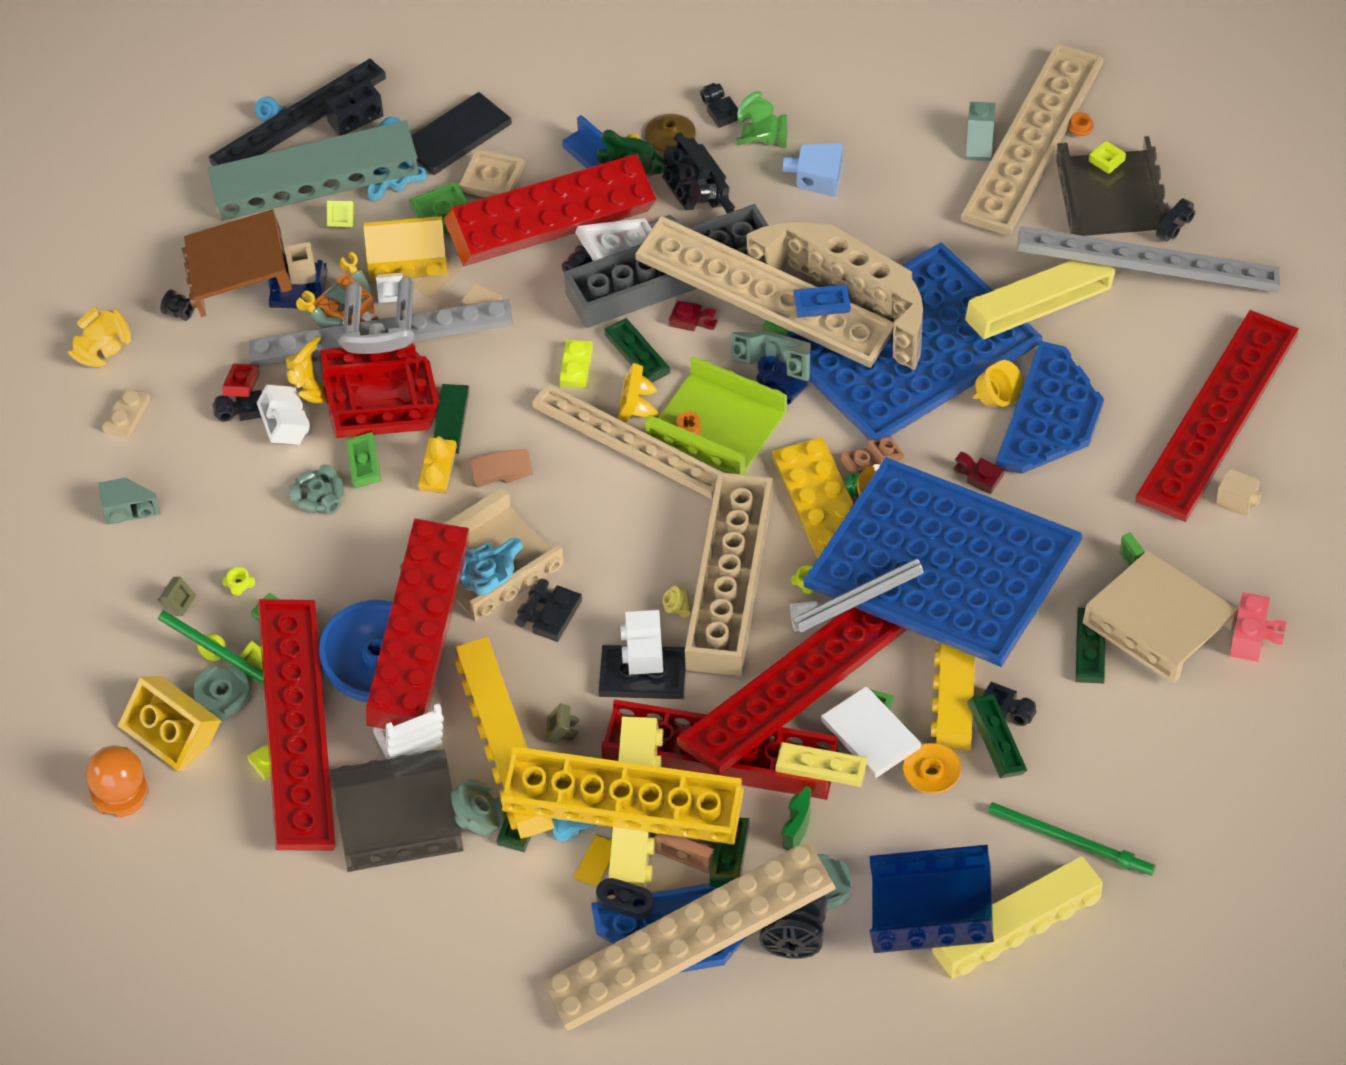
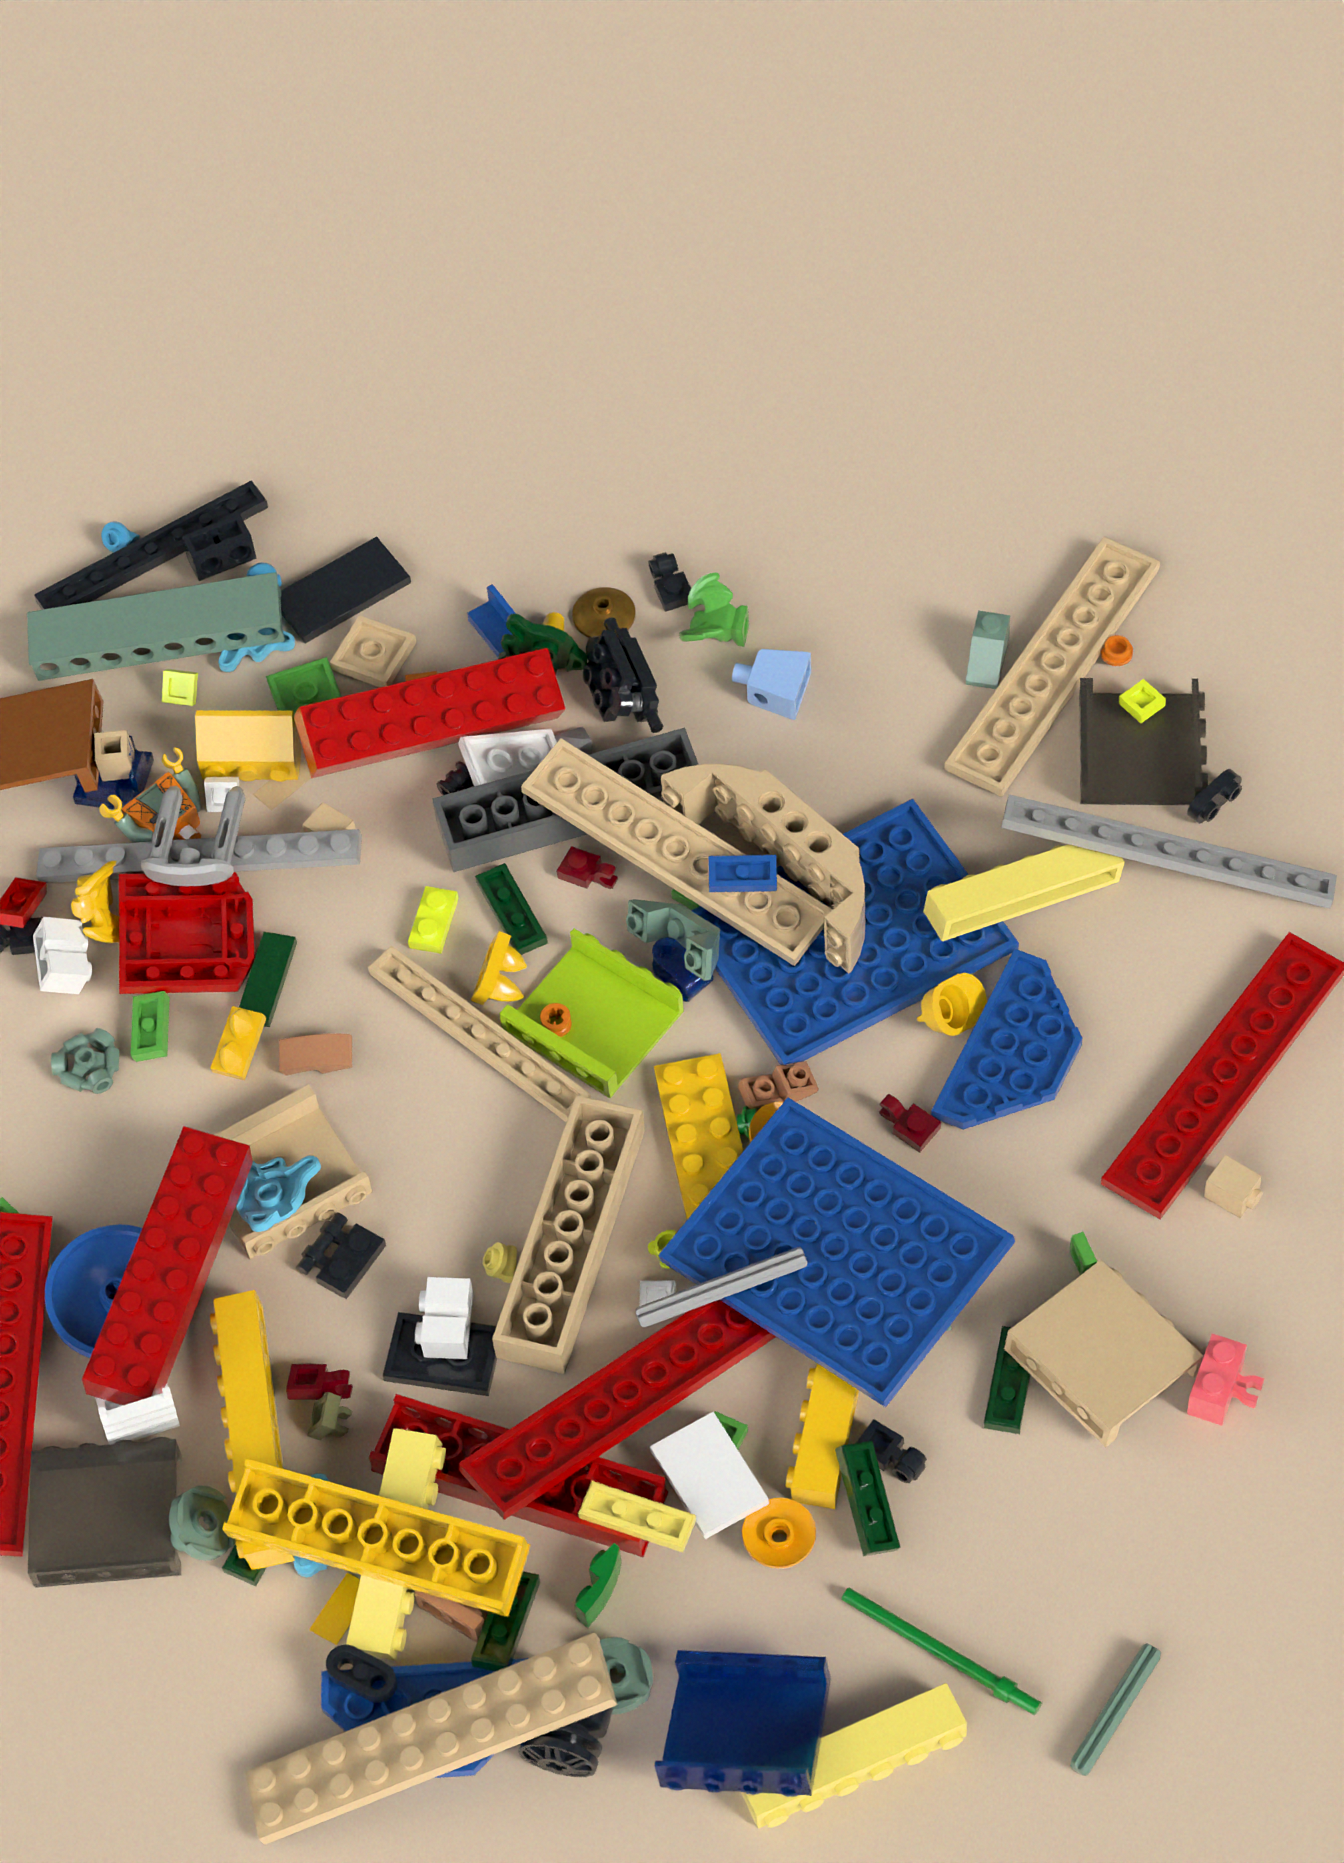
camera: 10 degrees right, 5 degrees up
(545, 699) = (313, 1380): none -> dark red plate
(1212, 865) = (1115, 1709): none -> sand green axle

